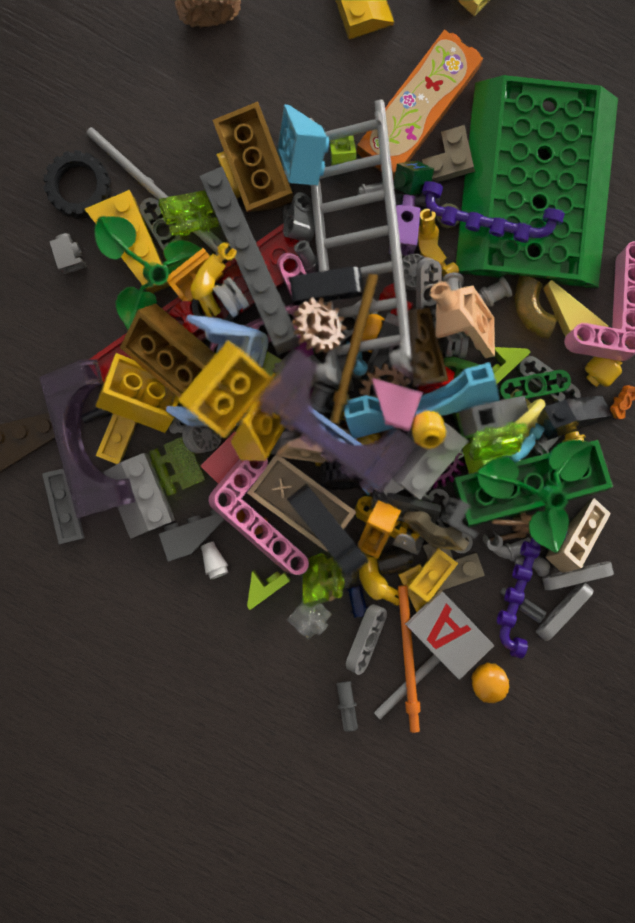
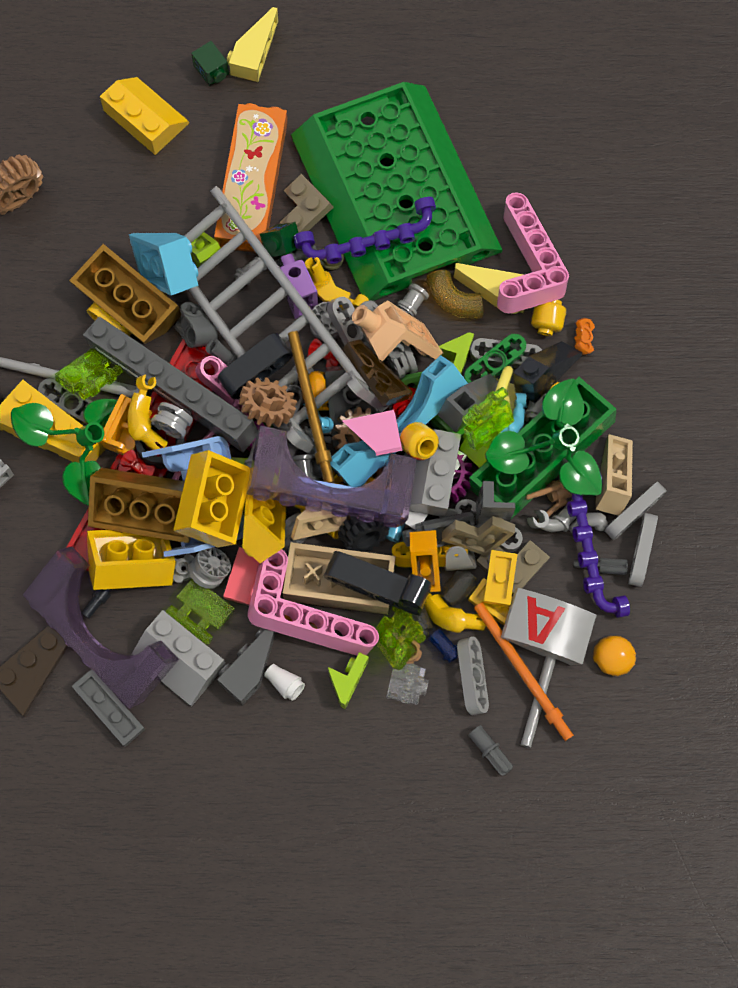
camera: 30 degrees left, 15 degrees down
(116, 439) = (127, 615): yellow plate -> none

